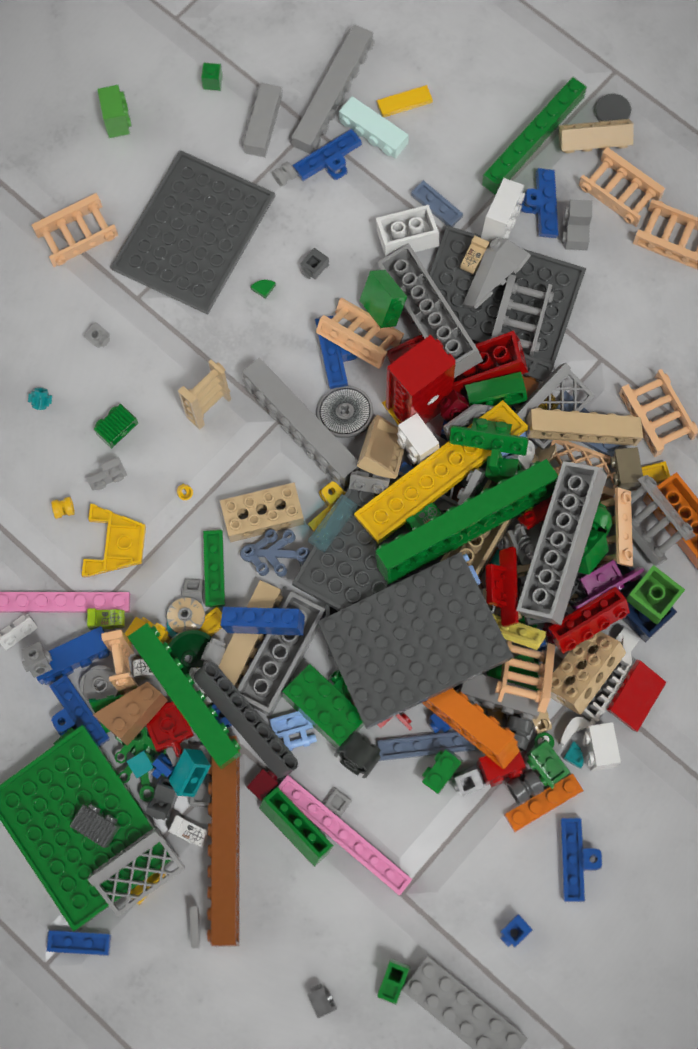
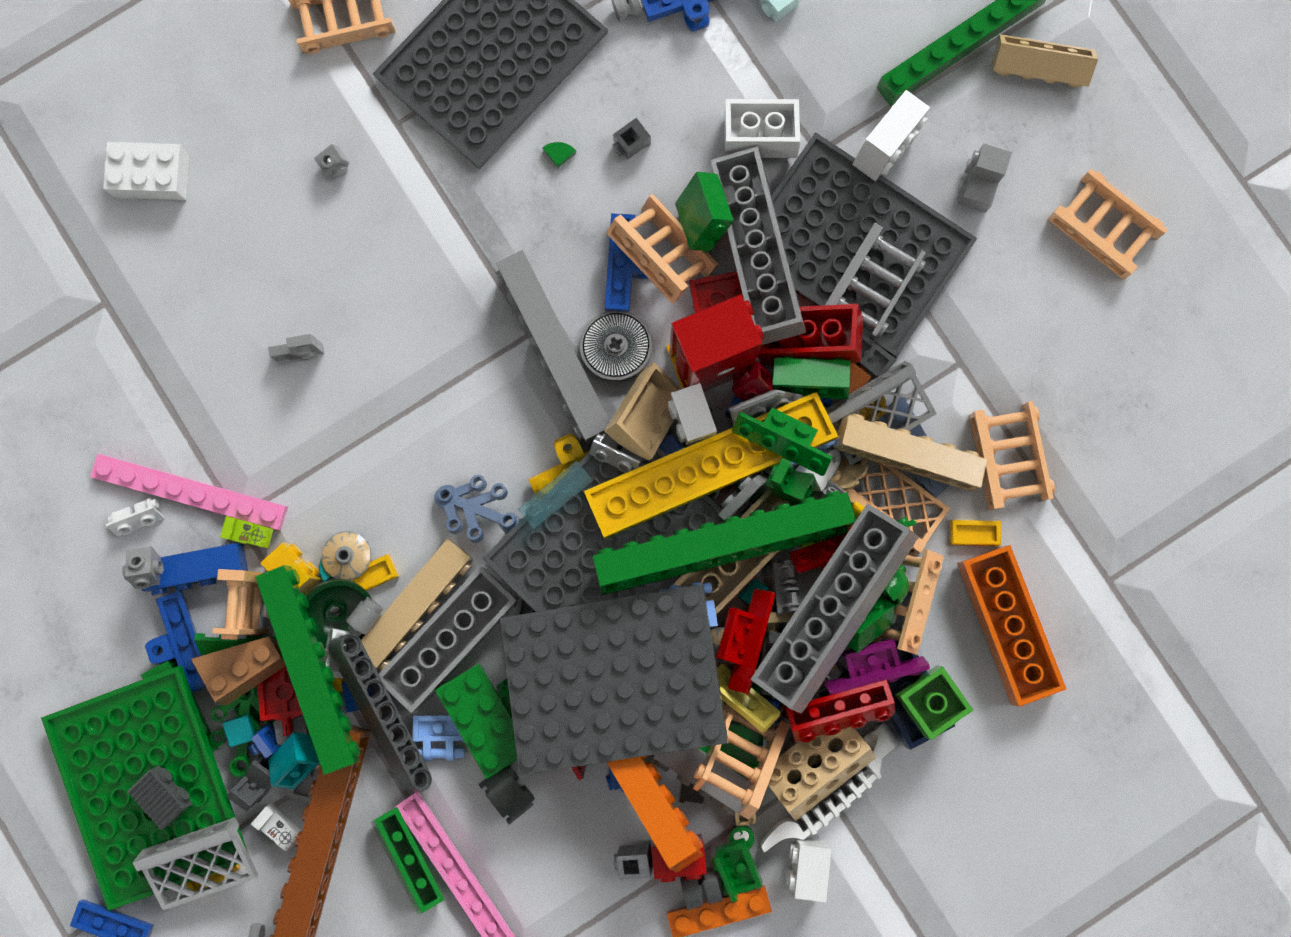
camera: 15 degrees right, 10 degrees up
(40, 398) = (239, 225): teal gear -> none
(63, 507) = (231, 375): yellow wheel -> none
(92, 677) = (204, 611): light grey plate -> none
(115, 425) = (324, 286): green brick -> none
(123, 542) = (294, 440): yellow wing -> none
(189, 492) = (382, 396): yellow hinge -> none
(194, 589) = (365, 523): light grey slope -> none
(205, 394) = (440, 280): tan fence -> none
(214, 568) = (397, 504): green plate -> none
(253, 503) = (466, 435): tan brick -> none
(263, 621) = (433, 597): blue brick -> none
(263, 784) = (382, 795): dark red brick -> none
(337, 803) = (468, 841): light grey tile -> none
(423, 516) = (671, 521): green leg -> none
(423, 745) = (587, 798): sand blue tile -> none
(438, 204) = (811, 99): sand blue plate -> none
(442, 771) = (604, 842): green brick -> none
(474, 255) = (838, 183): tan leg -> none
(497, 263) = (863, 205): light grey wedge -> none
(521, 729) = (710, 821): dark grey wheel -> none
(544, 202) = (949, 134): blue plate -> none
(574, 755) = (774, 863): teal tile -> none
(612, 108) = (1077, 28): dark grey tile -> none
(624, 170) = (1066, 118): light nougat fence -> none
(627, 468) = (949, 521): dark tan brick -> none
(636, 695) = (873, 813): red tile -> none
(645, 538) = (943, 615): light grey fence -> none

